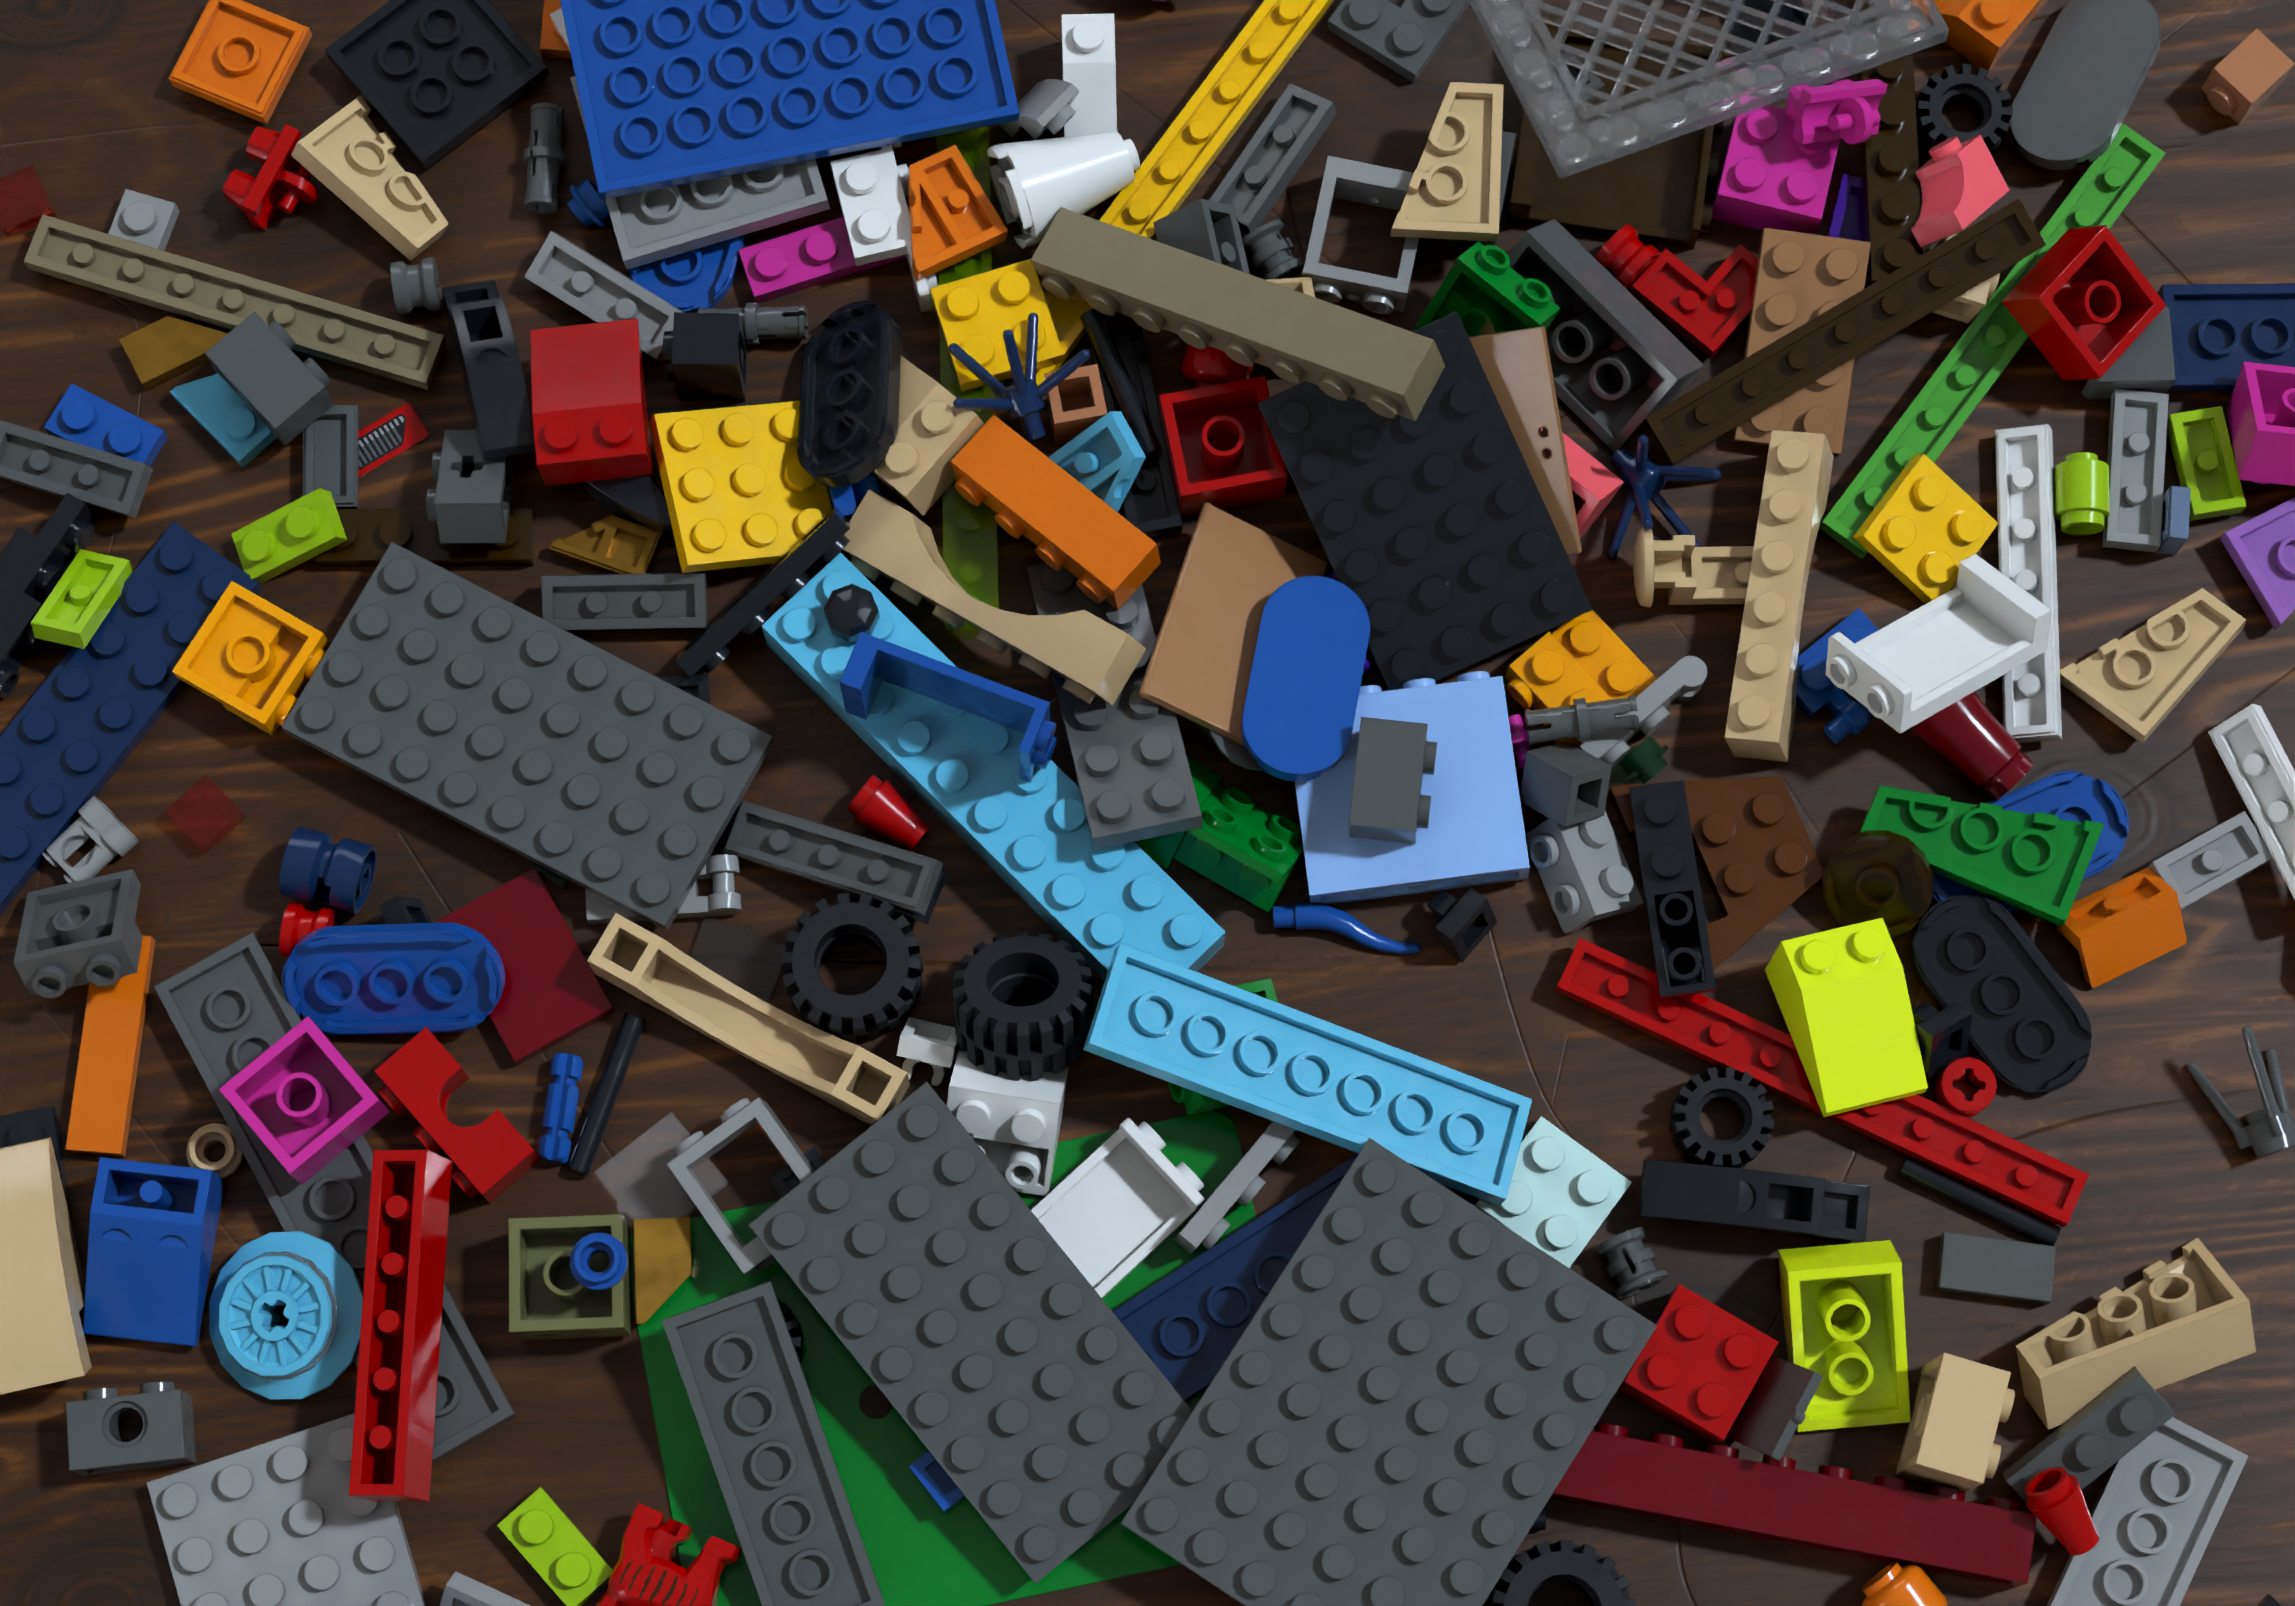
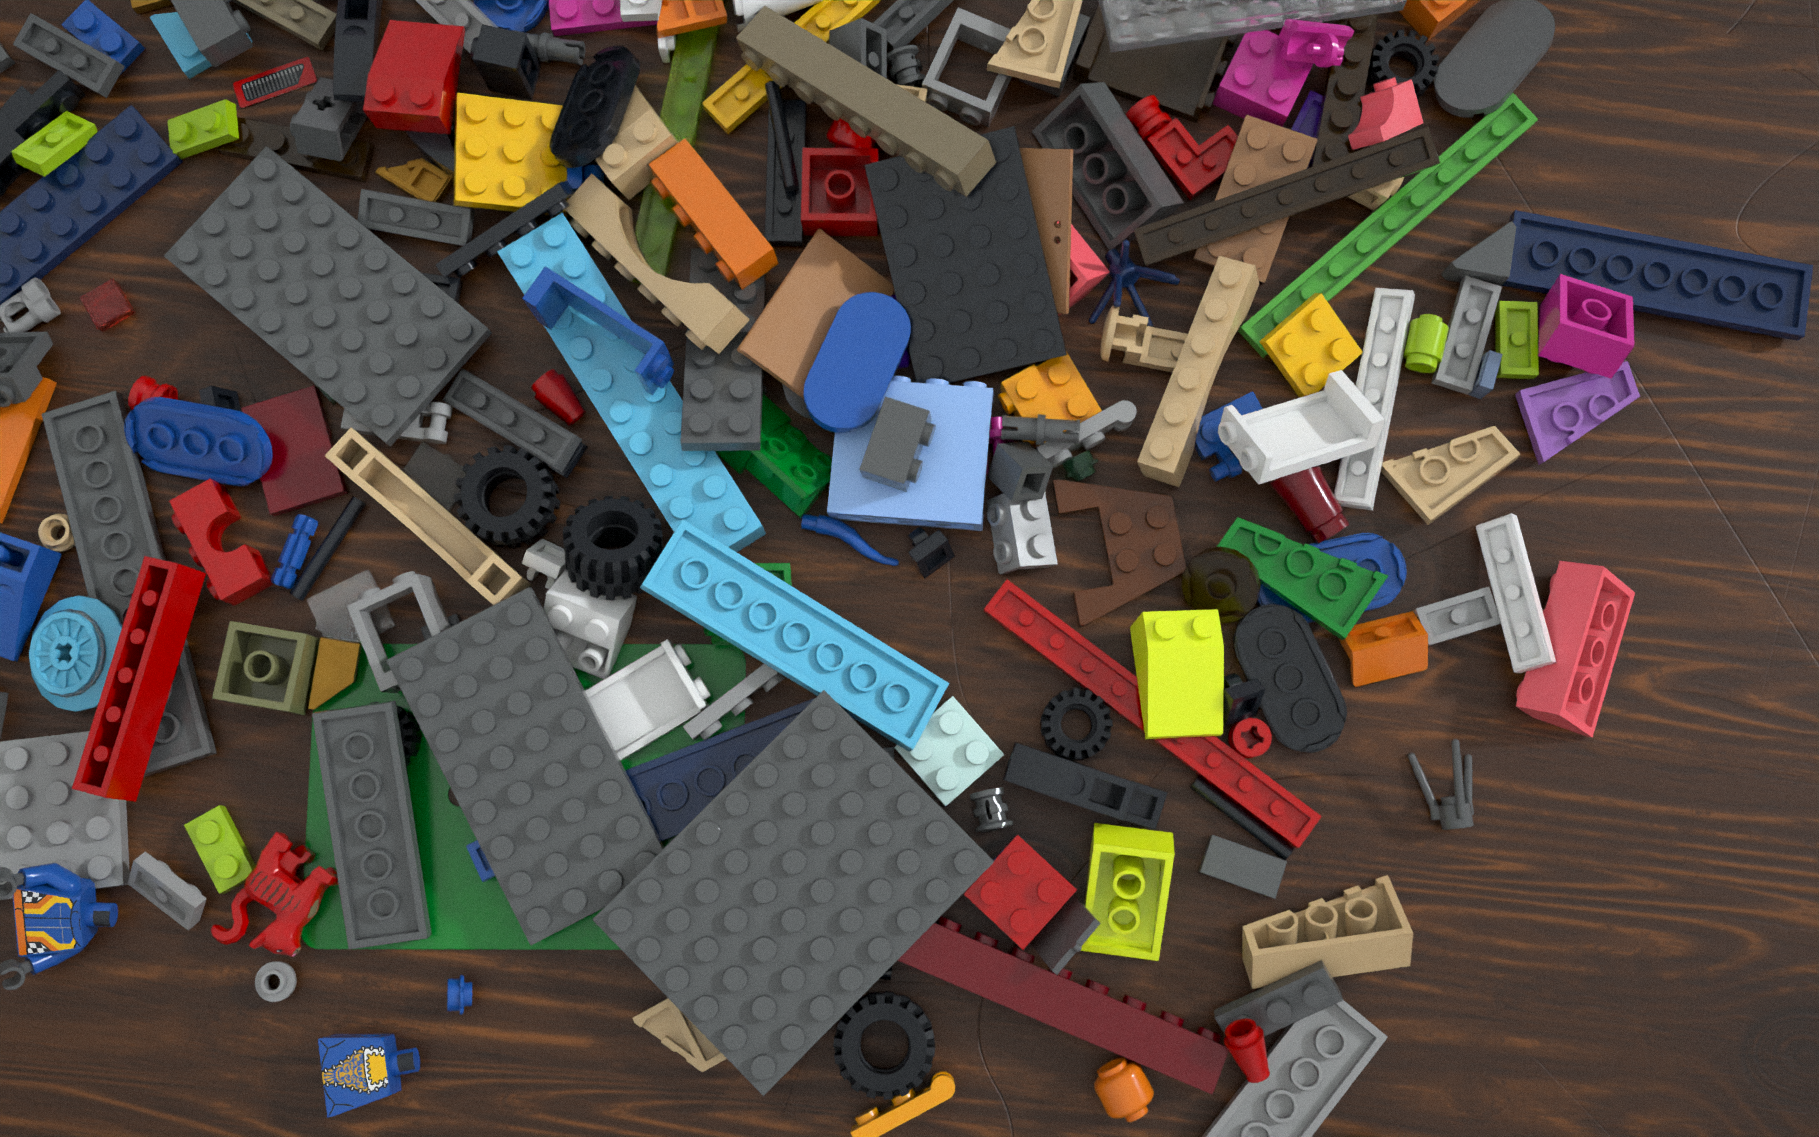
camera: 15 degrees right, 5 degrees up
(252, 657) = (156, 204): light orange plate -> none
(304, 1100) = (112, 511): dark pink brick -> none
(320, 868) = (174, 358): dark blue wheel -> none
(333, 455) = (248, 81): dark grey tile -> none
(589, 1246) = (269, 660): blue plate -> none
(851, 612) = (556, 254): black tile -> none
(982, 307) = (706, 79): yellow plate -> none
(1023, 396) = (708, 131): dark blue plant -> none
(1075, 403) = (747, 143): nougat brick -> none
(1103, 458) = (755, 186): medium azure wing -> none
(1490, 295) = (1046, 124): green plate -> none
(1672, 889) = (1077, 560): black slope -> none
(1955, 1423) = (1188, 973): tan brick -> none
(2084, 303) = (1457, 210): red brick -> none
(2247, 77) = (1607, 77): nougat brick -> none

